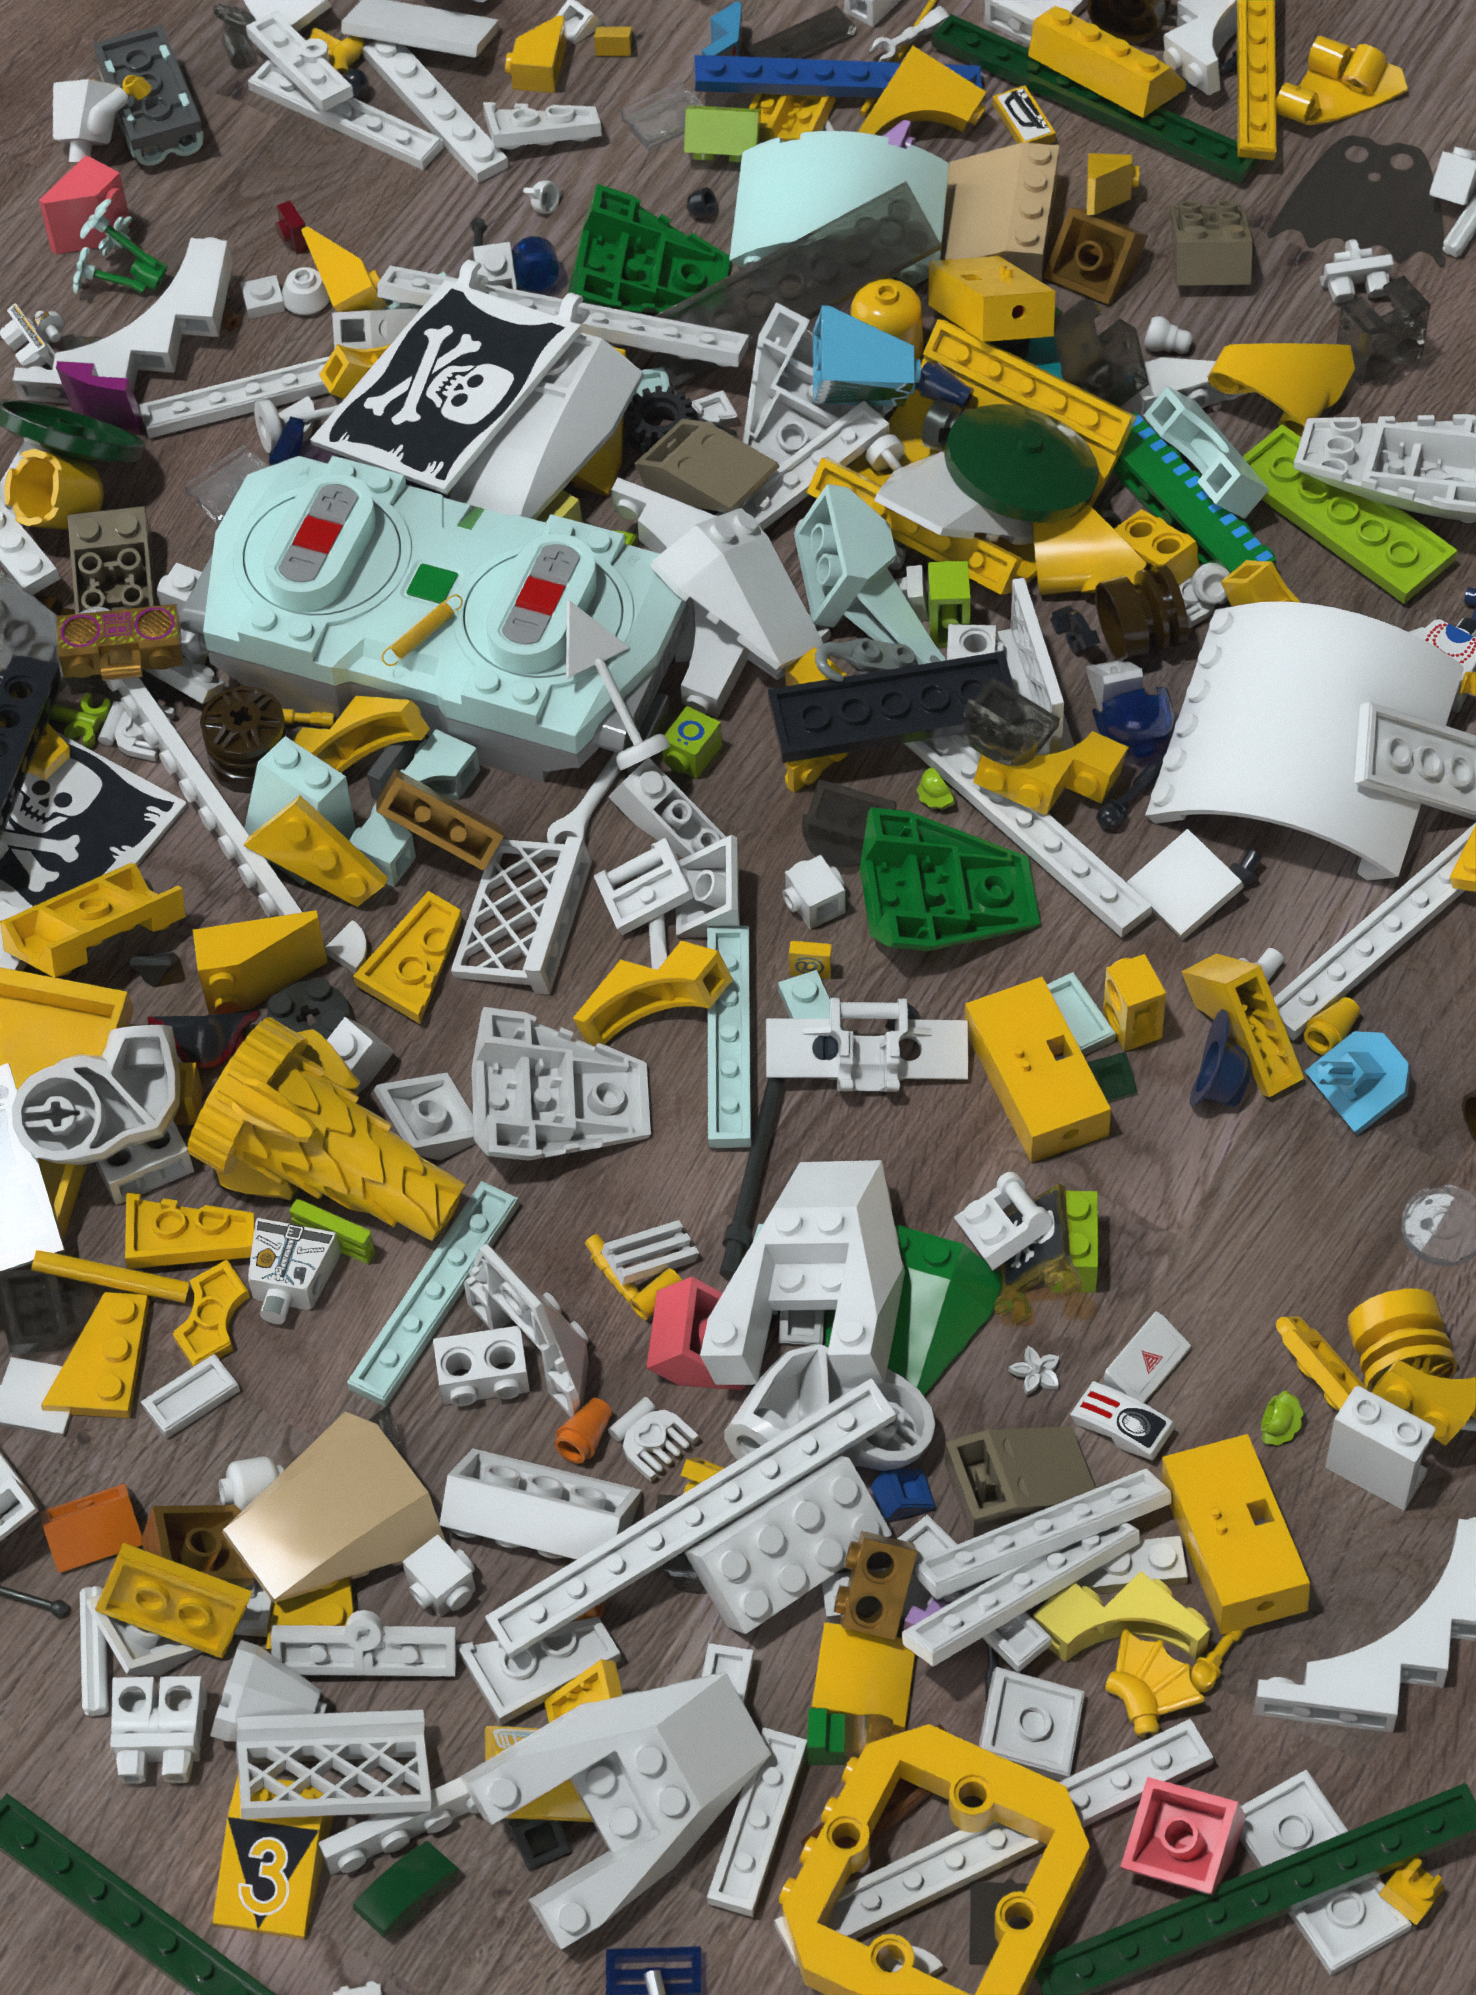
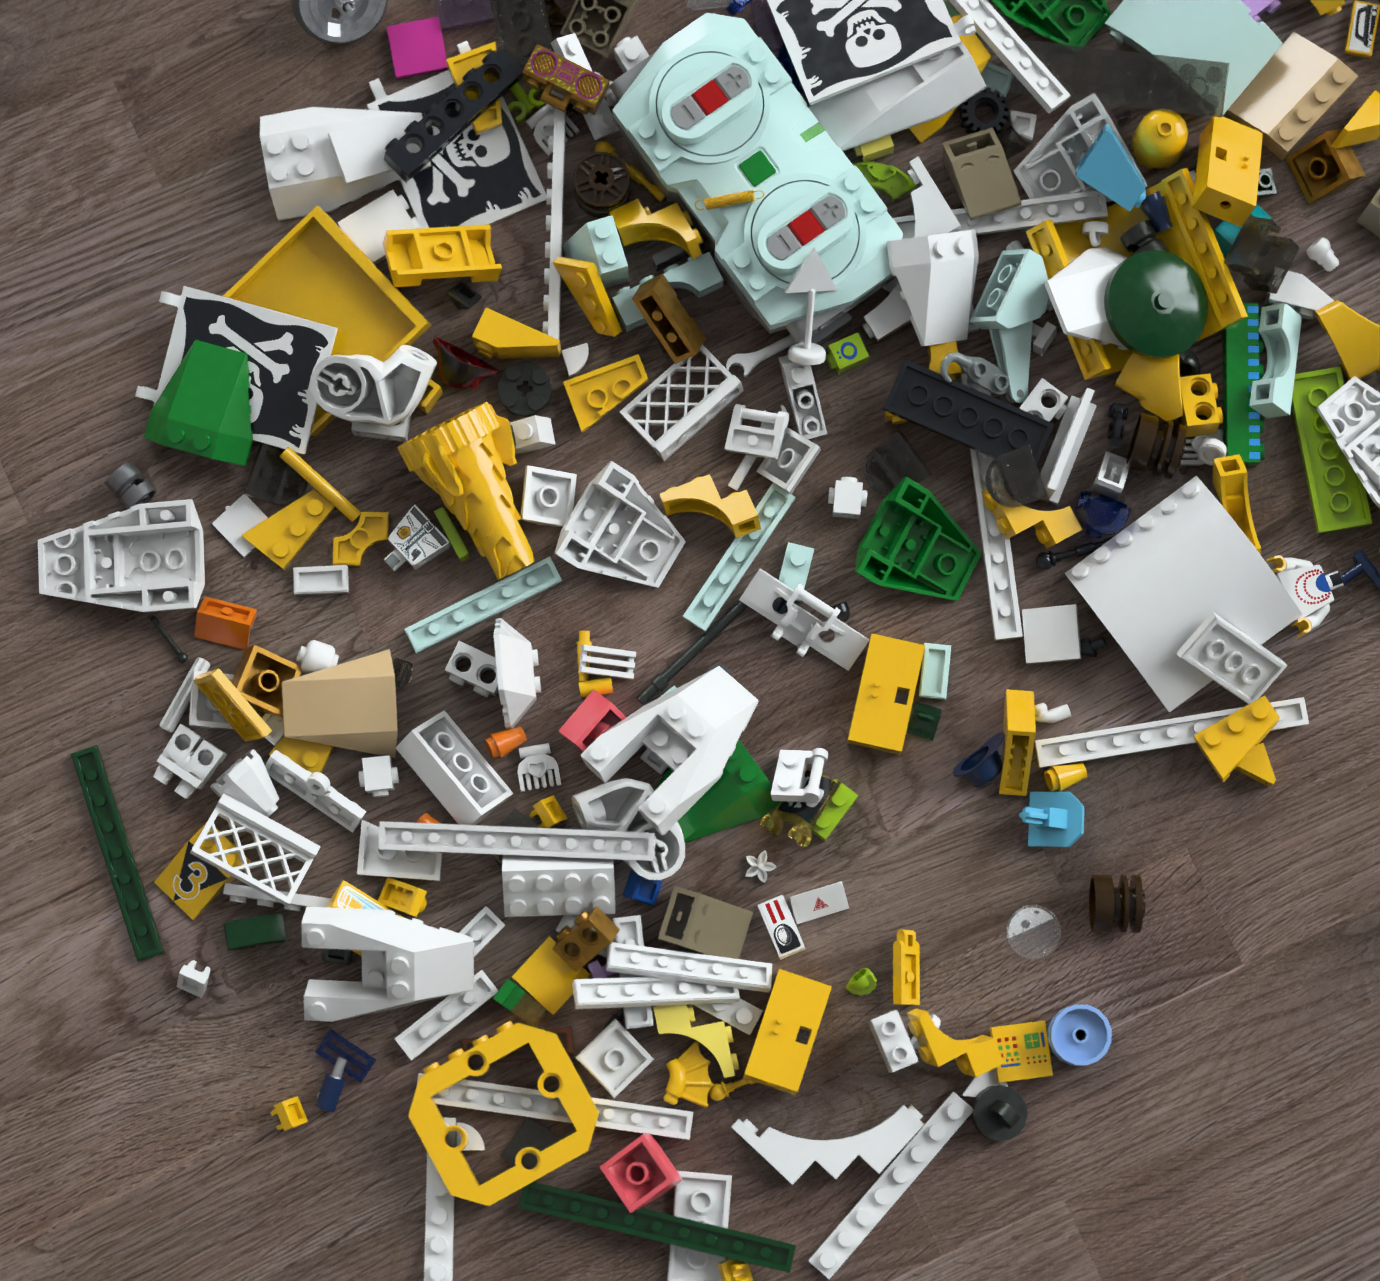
camera: 30 degrees right, 25 degrees up
(182, 1235) = (374, 480): yellow wing -> none
(810, 957) = (814, 540): yellow tile -> none
(934, 790) = (961, 476): lime piece -> none
(947, 598) = (1053, 362): lime brick -> none
(1134, 1002) = (964, 692): yellow brick -> none
(1403, 1327) = (950, 991): yellow wheel -> none

